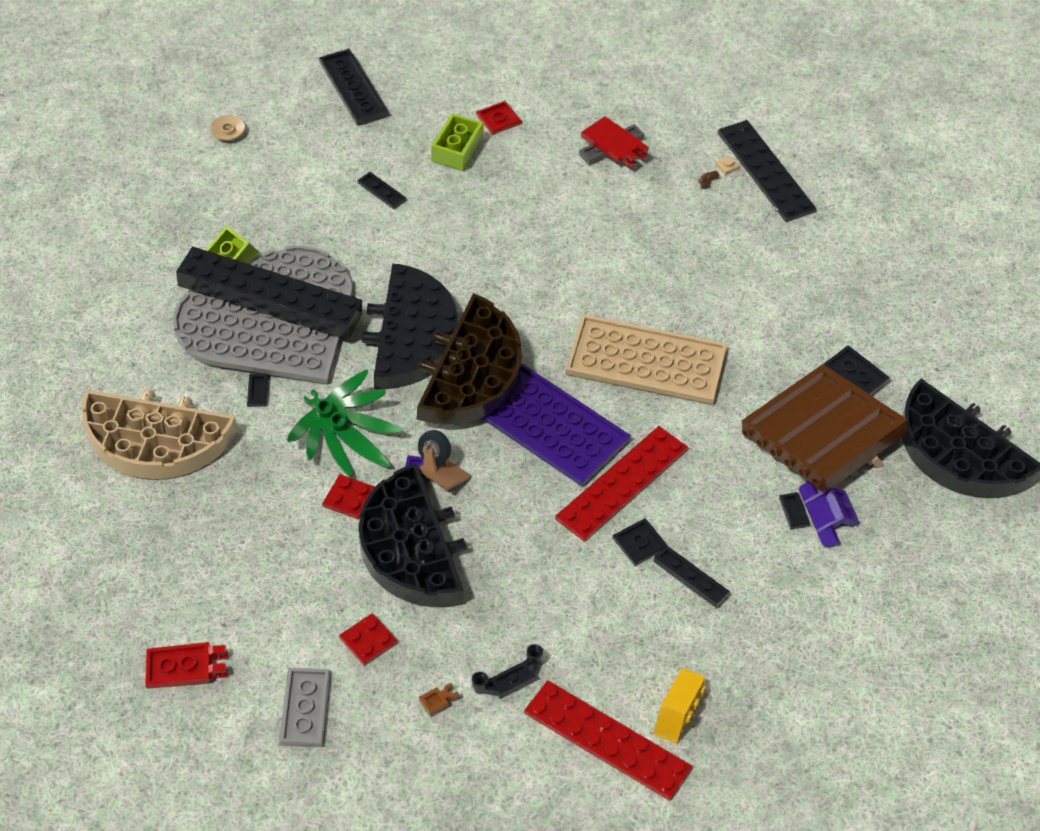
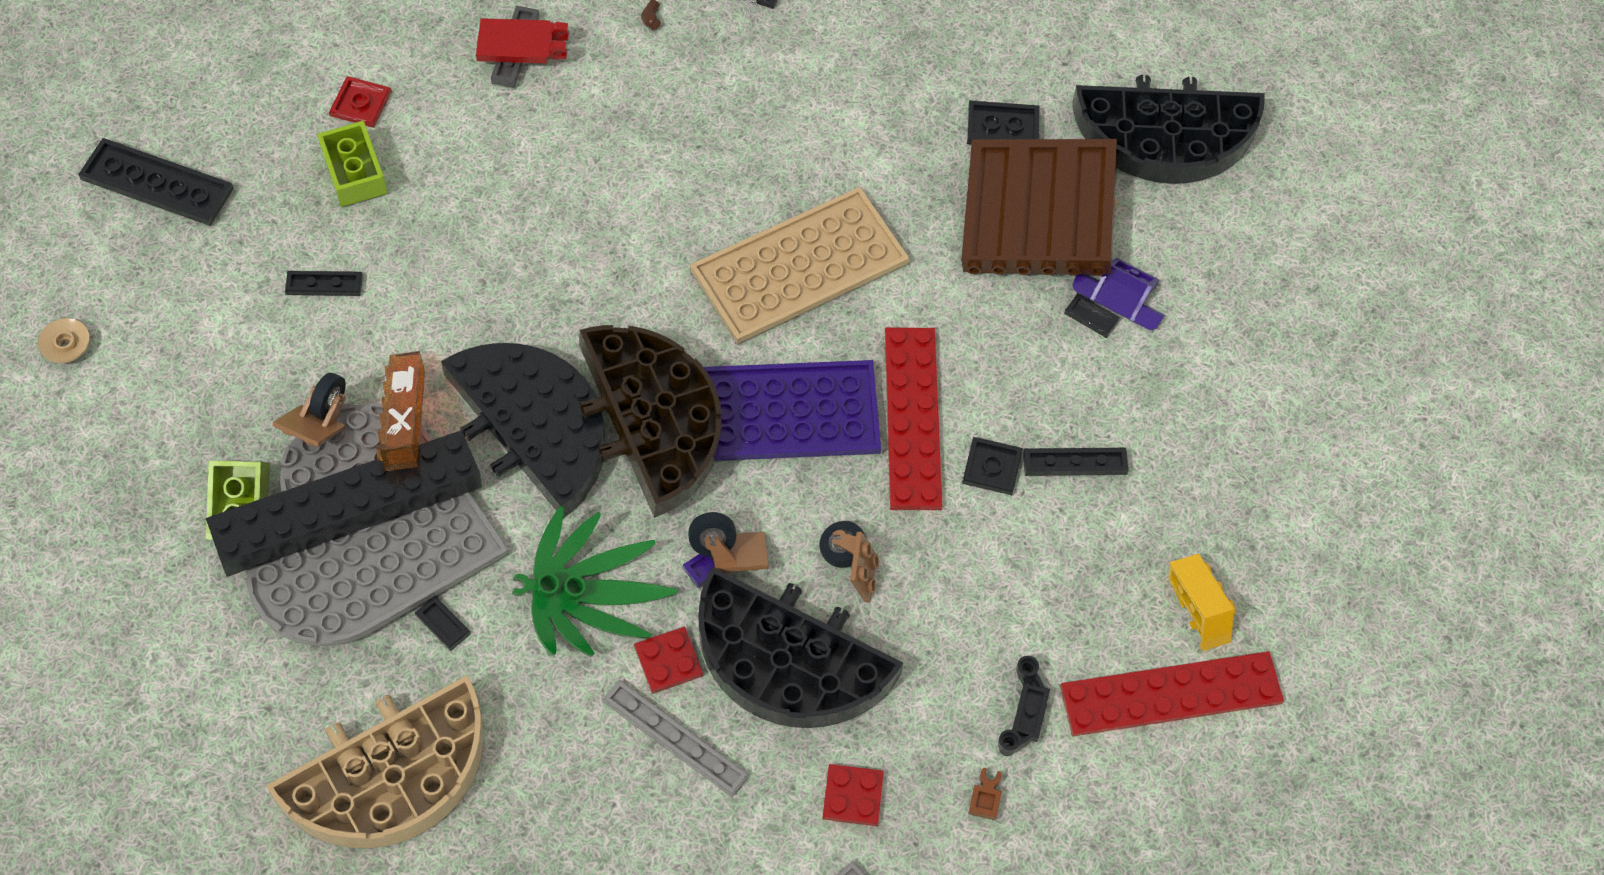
camera: 45 degrees left, 10 degrees up
(303, 244) = (318, 417): none -> medium nougat plate
(309, 537) = (675, 738): none -> light grey tile
(343, 269) = (402, 411): none -> clear orange brick
(501, 524) = (845, 546): none -> medium nougat plate

